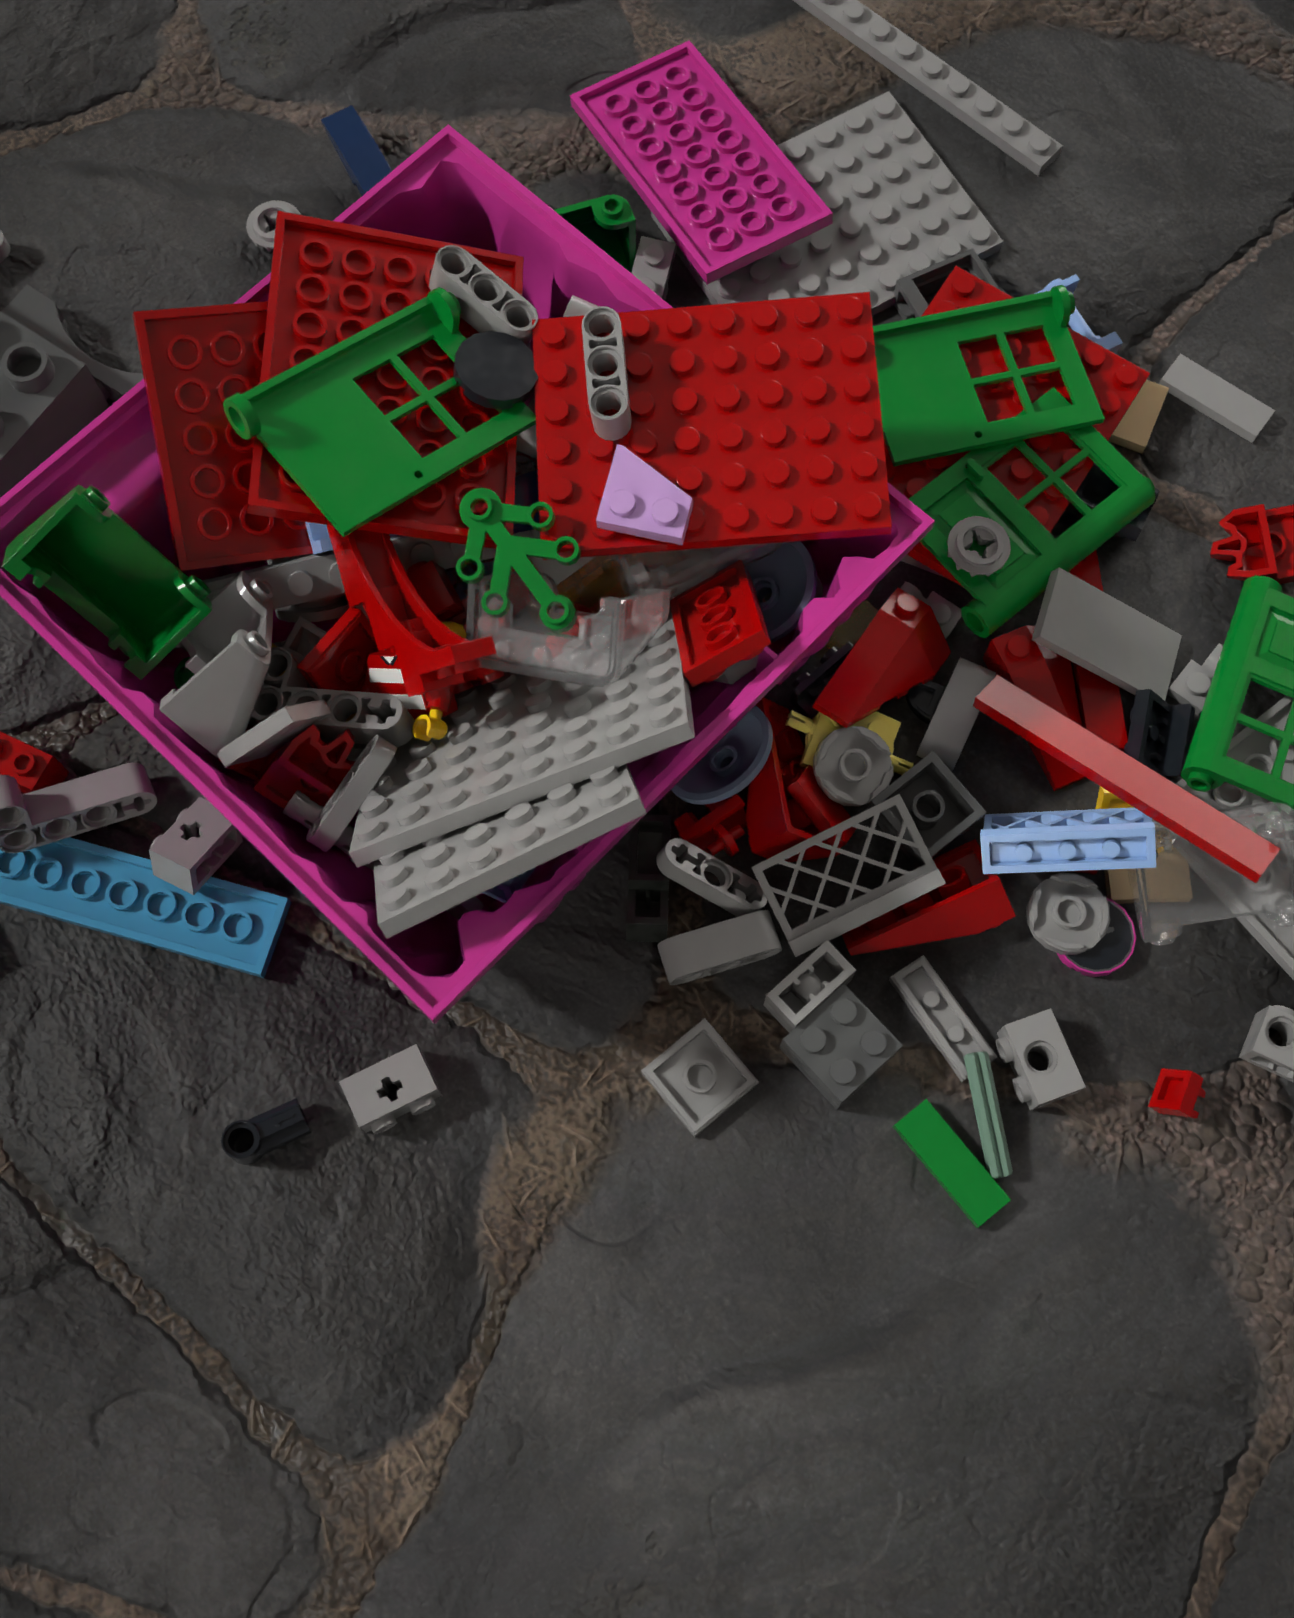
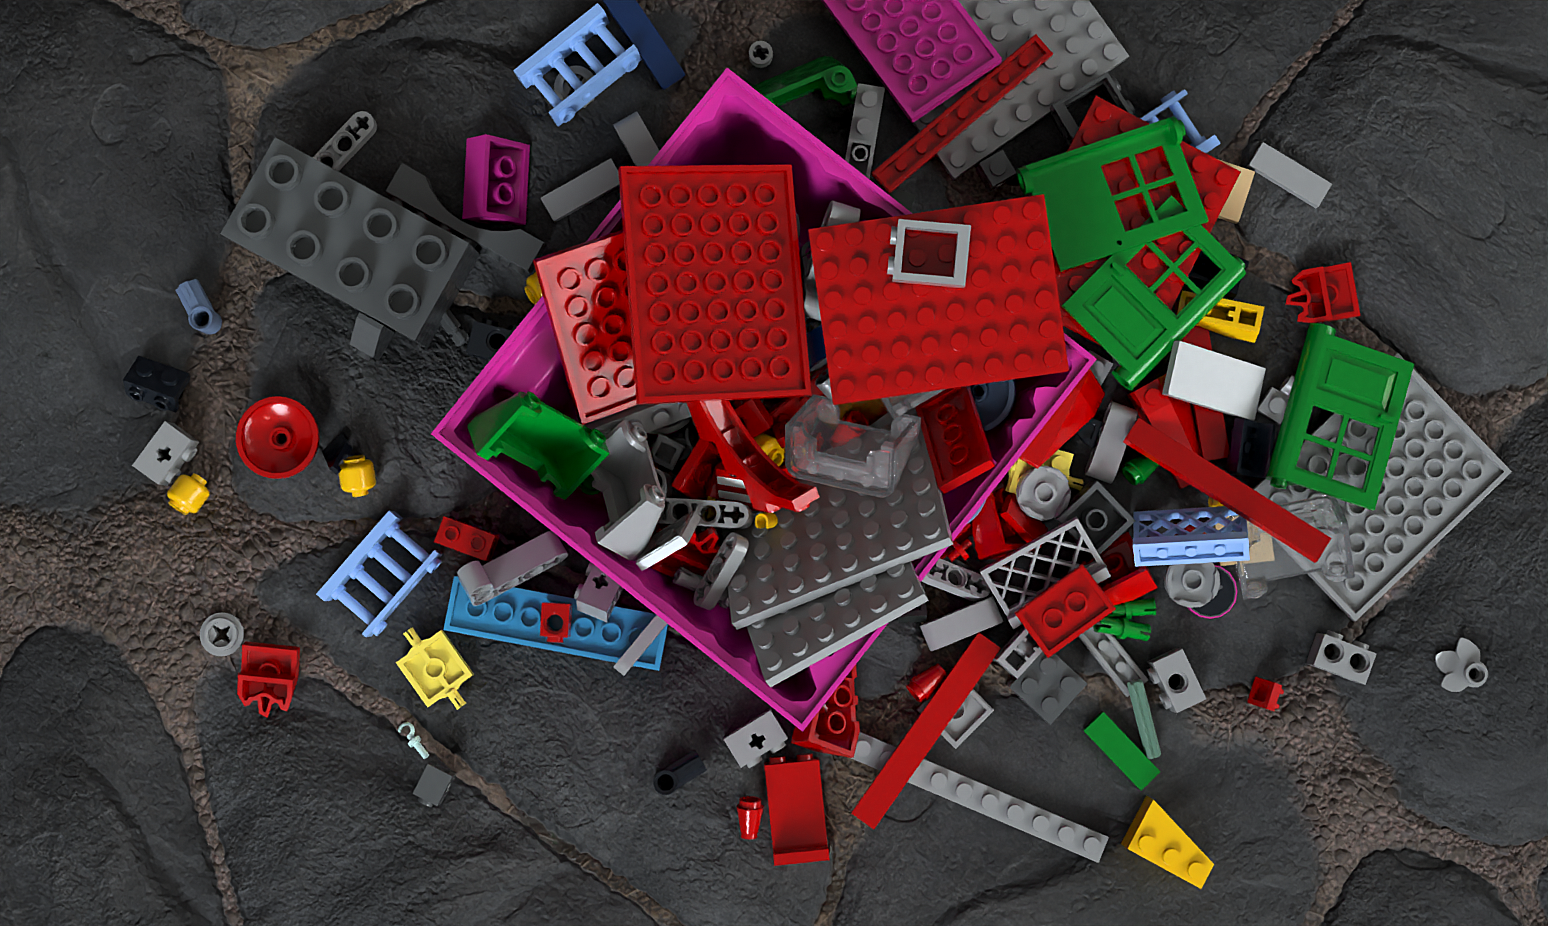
camera: 10 degrees left, 15 degrees up
(107, 870) = (549, 609): none -> red brick
(140, 286) = (496, 180): none -> dark pink slope
(243, 922) = (640, 645): none -> light grey beam
(268, 174) = (570, 40): none -> light blue fence
(341, 442) = (694, 346): green door -> none
(365, 1210) = (749, 816): none -> red cone
(440, 1206) = (796, 809): none -> red panel
(484, 297) = (785, 215): light grey beam -> none
(495, 370) = (787, 271): black tile -> none
(507, 1059) = (835, 725): none -> red wedge
(513, 552) = (815, 408): green plant -> none
(606, 355) = (863, 263): light grey beam -> none
(643, 501) = (900, 367): lavender wing -> none
(646, 1102) = (925, 730): none -> red tile
(659, 1030) = (926, 683): none -> red cone
(698, 380) = (961, 253): none -> light grey window
(725, 1215) = (989, 801): none -> light grey plate
(819, 257) = (962, 114): none -> red tile
(873, 927) = (1065, 610): none -> red tile
(960, 974) = (1123, 628): none -> green pin
(971, 949) = (1134, 608): none -> green pin
(986, 533) = (1127, 319): light grey gear -> none
(997, 752) = (1138, 469): none -> green cone
(1017, 1317) = (1166, 845): none -> yellow wedge
(1134, 562) = (1229, 318): none -> yellow slope

